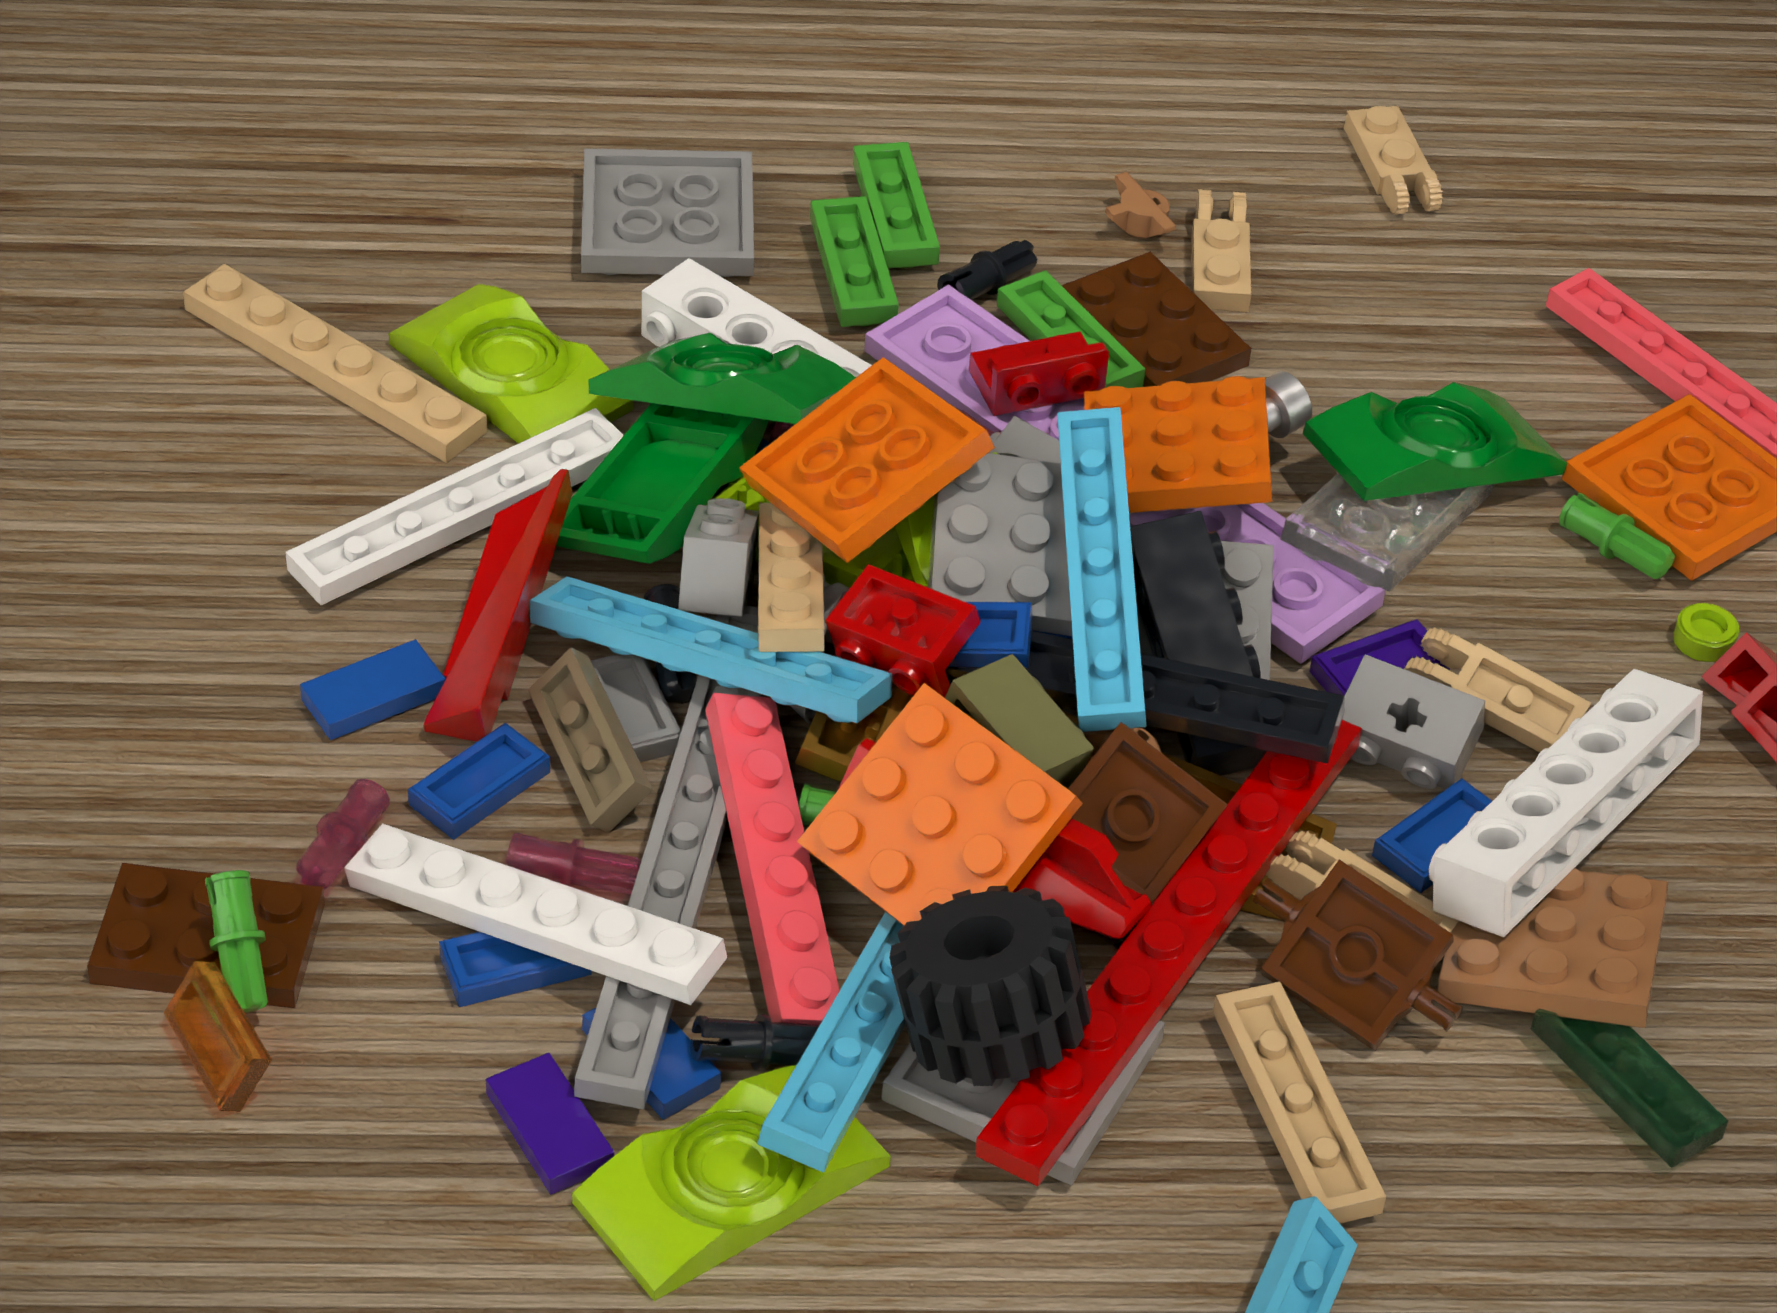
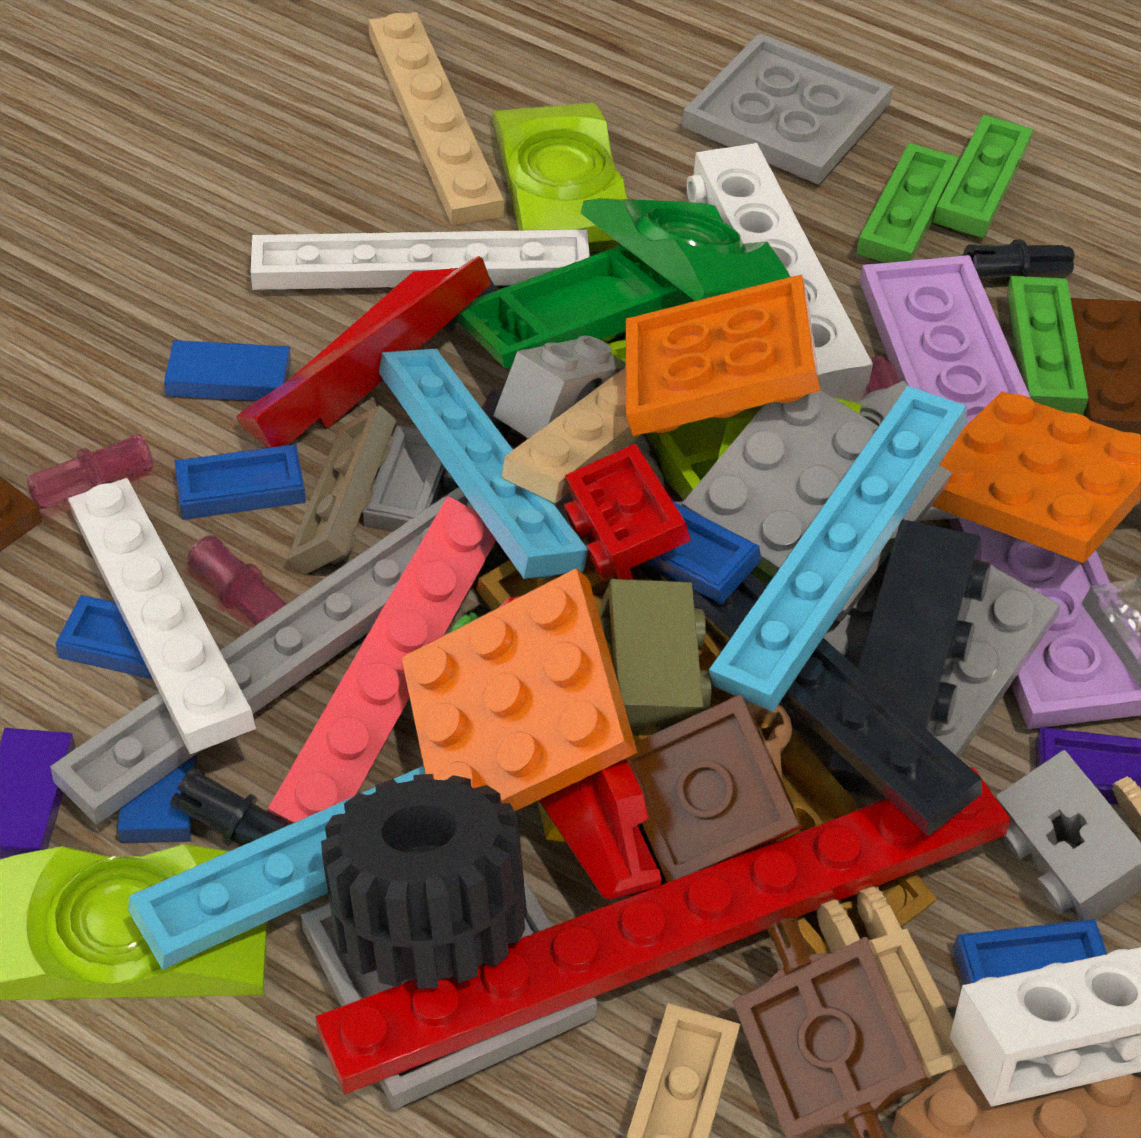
camera: 35 degrees right, 5 degrees up
(1039, 372) = (979, 358): red bracket -> none

